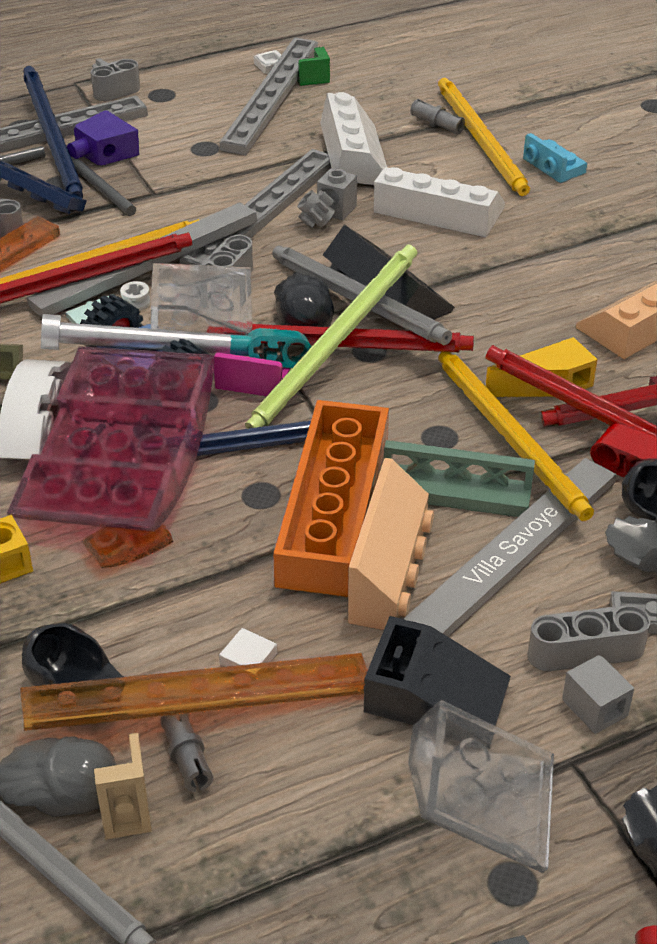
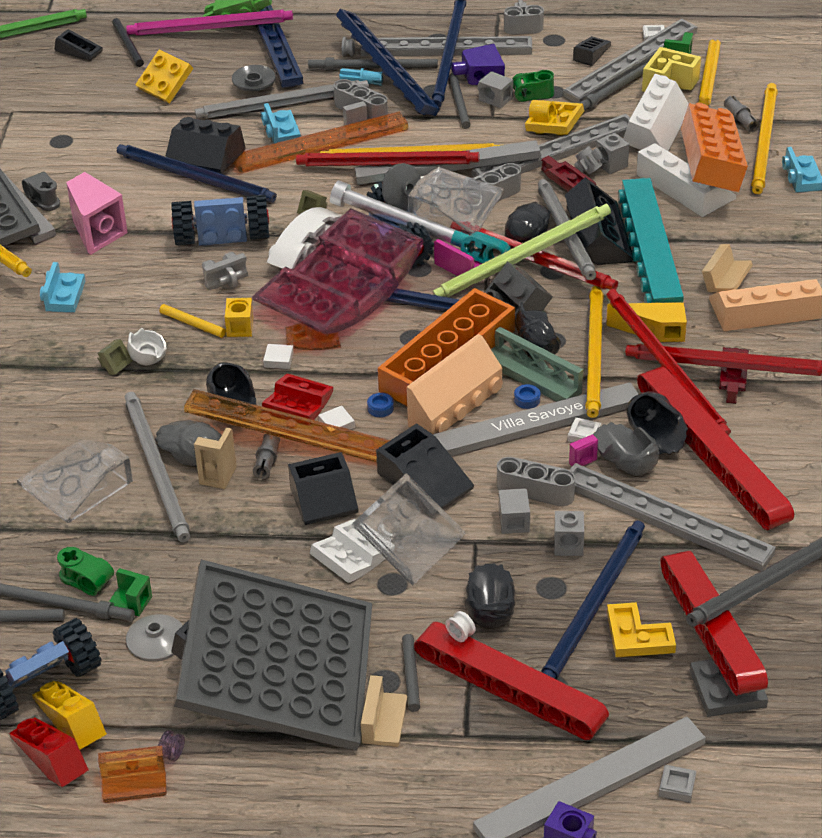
camera: 30 degrees right, 0 degrees up
(96, 587) = (278, 356): none -> white tile
(129, 298) = (395, 185): none -> dark grey dish
(148, 153) = (495, 89): none -> light grey brick
(167, 639) = (299, 396): none -> red slope
(182, 144) = (535, 86): none -> green piece
(215, 95) = (590, 50): none -> black slope
(234, 173) = (553, 116): none -> yellow plate
(261, 144) = (592, 99): none -> dark grey bar
(290, 606) = (380, 405): none -> blue tile
(298, 233) = (562, 173): none -> dark red hinge
(316, 772) = (322, 488): none -> black slope
(332, 80) = (675, 65): none -> light yellow brick
(362, 384) = (517, 286): none -> dark grey slope
(365, 85) = (709, 72): none -> yellow axle
(416, 859) = (347, 553): none -> white slope
(430, 426) = (536, 329): none -> black hair
(460, 152) = (713, 147): none -> orange brick
(469, 284) = (649, 242): none -> teal brick
(472, 522) = (527, 396): none -> blue tile
(577, 290) = (723, 272): none -> tan panel
(582, 544) = (582, 428): none -> white tile
(612, 571) = (583, 451): none -> dark pink tile

